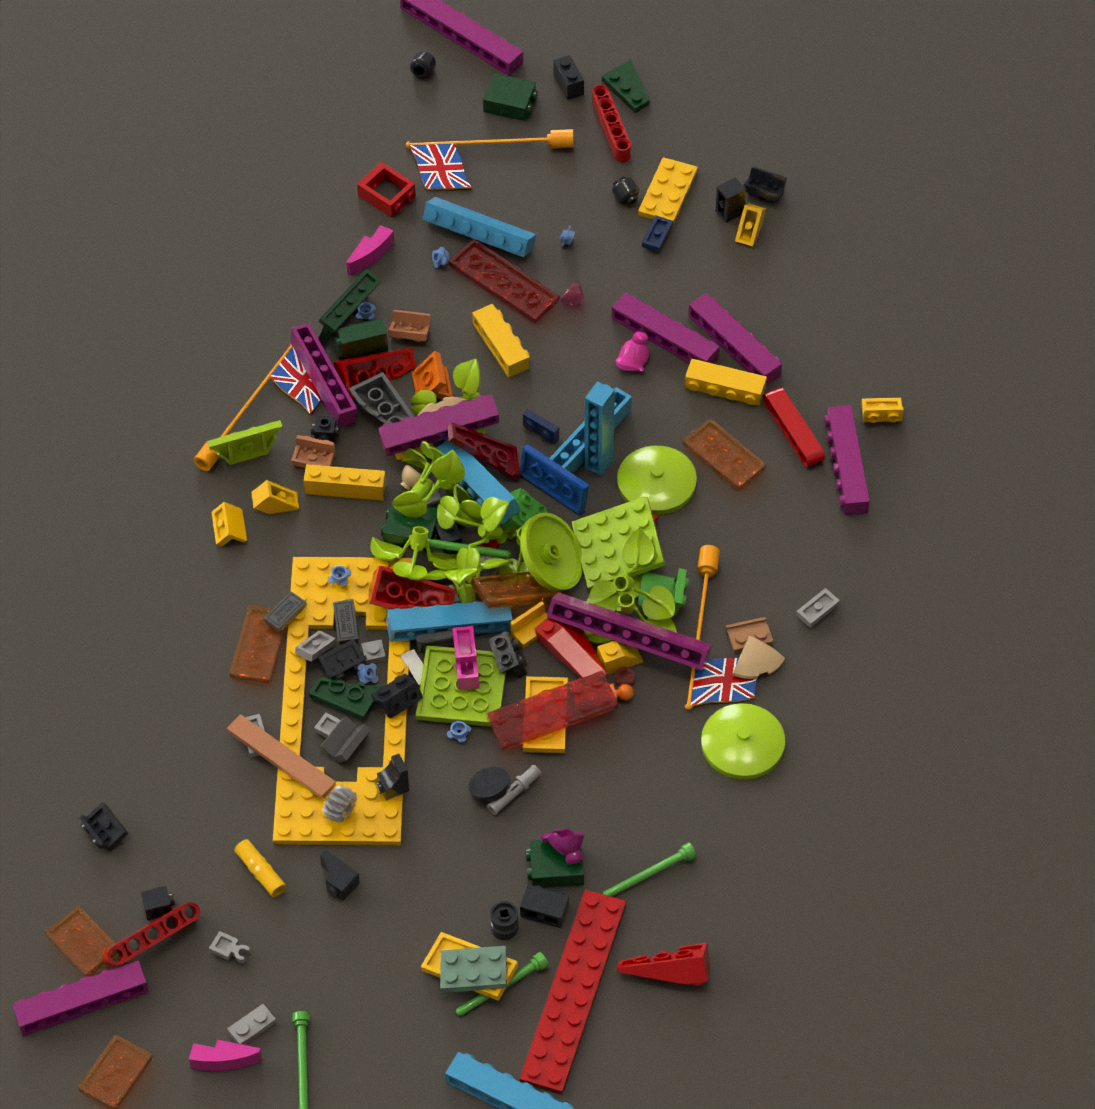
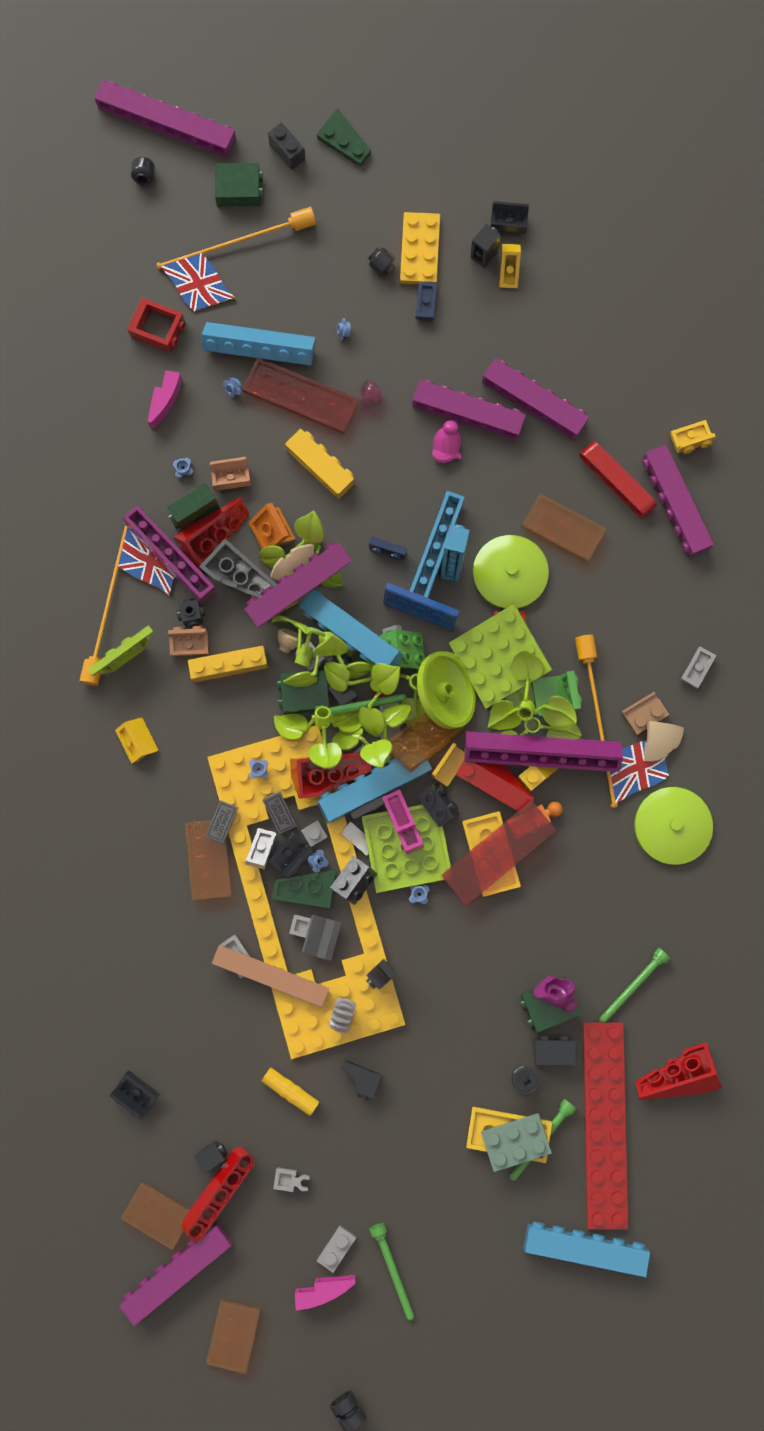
camera: 15 degrees left, 25 degrees up
(274, 498) = (169, 700): yellow slope -> none
(347, 303) = (168, 474): dark green fence -> none
(489, 784) = (465, 943): black tile -> none
(491, 451) = (349, 594): dark red wing -> none
(520, 784) = (488, 940): light grey pin -> none
(611, 123) = (342, 179): red beam -> none
(625, 676) = (548, 791): clear red tile -> none
(725, 382) = (541, 449): yellow brick -> none

